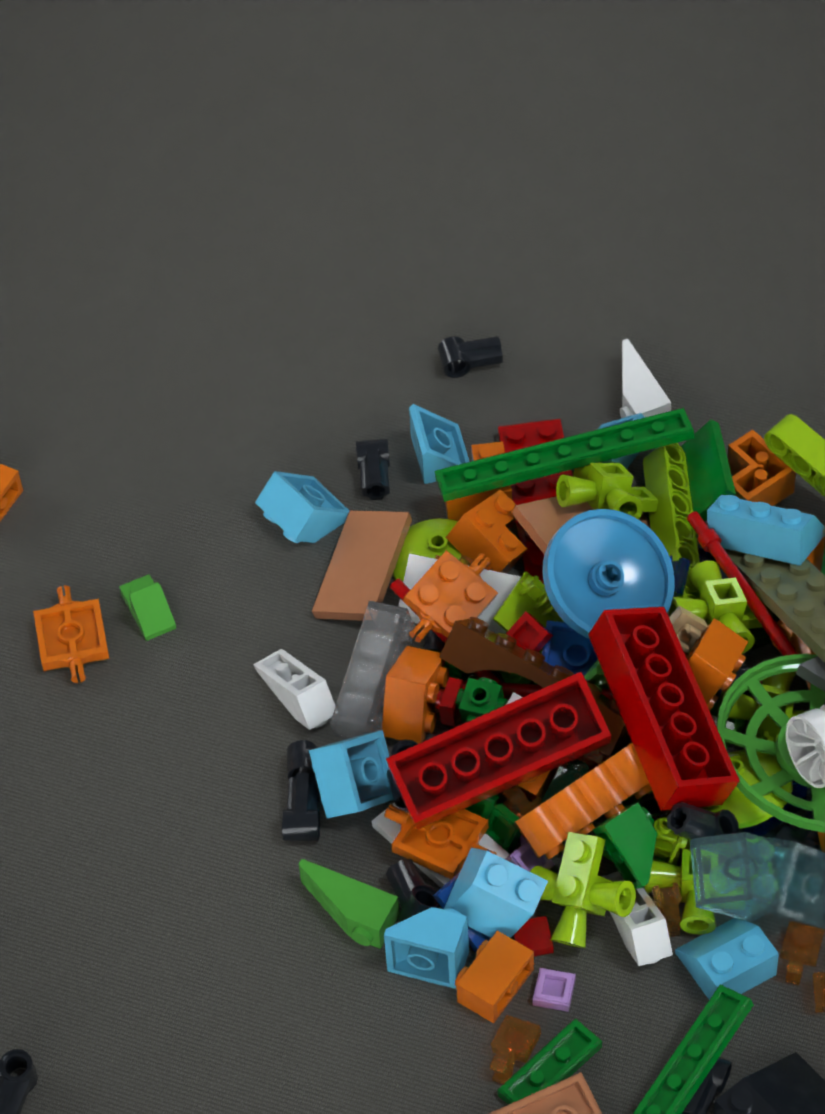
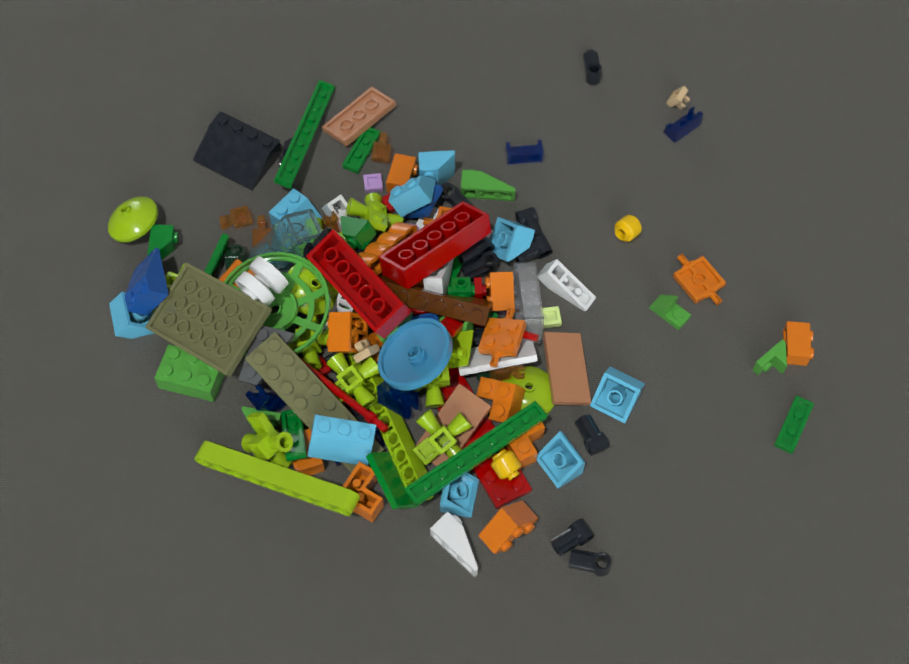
camera: 155 degrees right, 10 degrees up
(33, 491) = (774, 357): none -> bright green slope
(67, 406) = (794, 424): none -> green tile
(136, 748) = (627, 228): none -> yellow head
(240, 952) = (524, 154): none -> clear blue hinge
(341, 647) = (552, 317): none -> yellowish green plate
(452, 317) = (587, 562): none -> black piece
(522, 435) = (506, 464): none -> yellow head
(554, 374) = (508, 525): none -> orange brick

